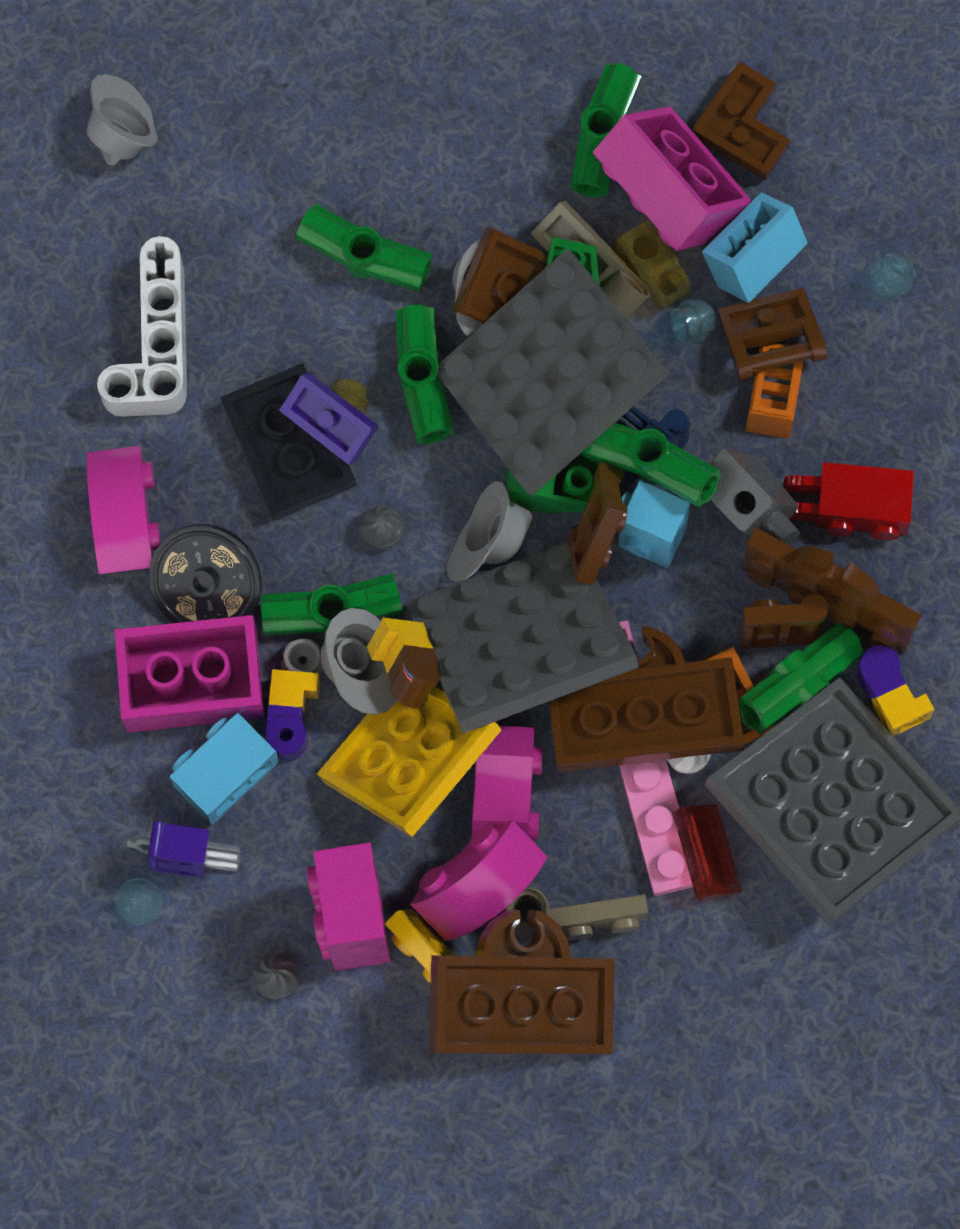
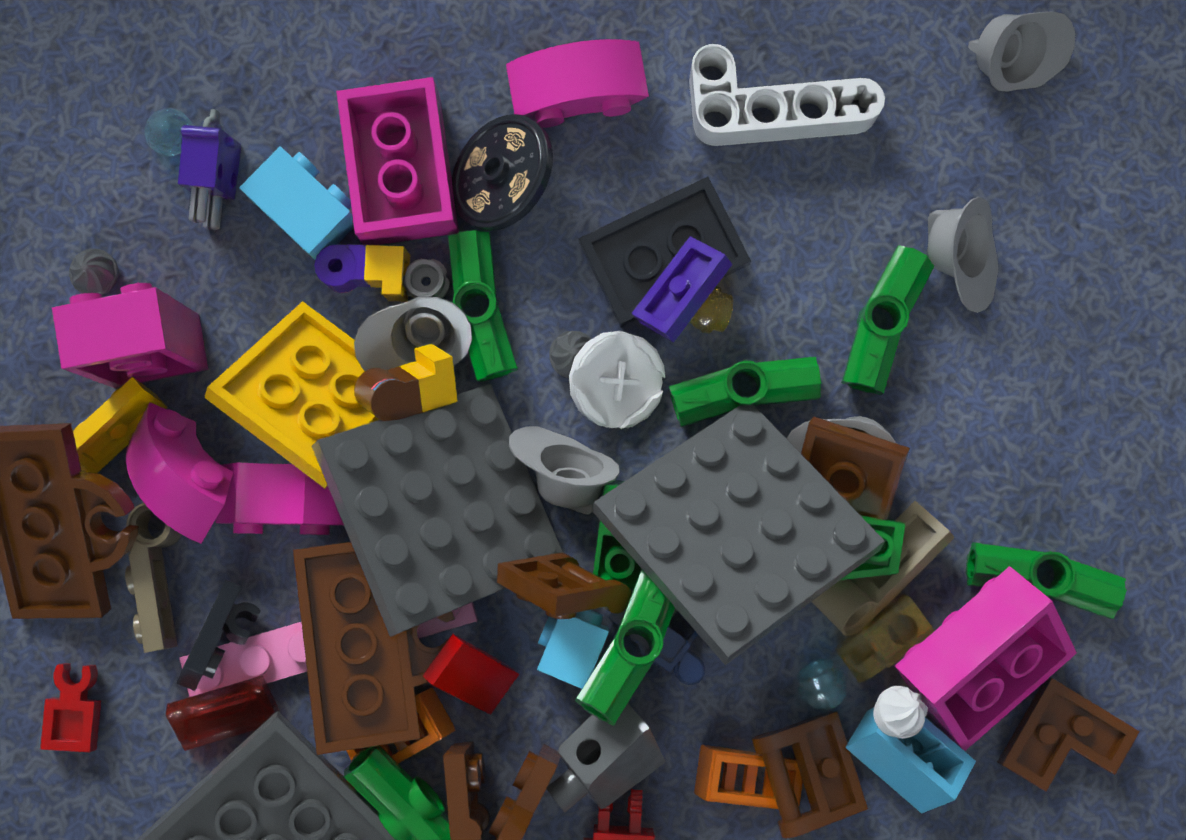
camera: 90 degrees right, 10 degrees up
(304, 180) = (965, 249): none -> light grey piece
(408, 485) = (617, 379): none -> white tile
(633, 850) = (205, 655): none -> black plate
(675, 617) = (470, 674): none -> red tile
(710, 995) = (72, 719): none -> red plate
(716, 246) = (900, 712): none -> white plate

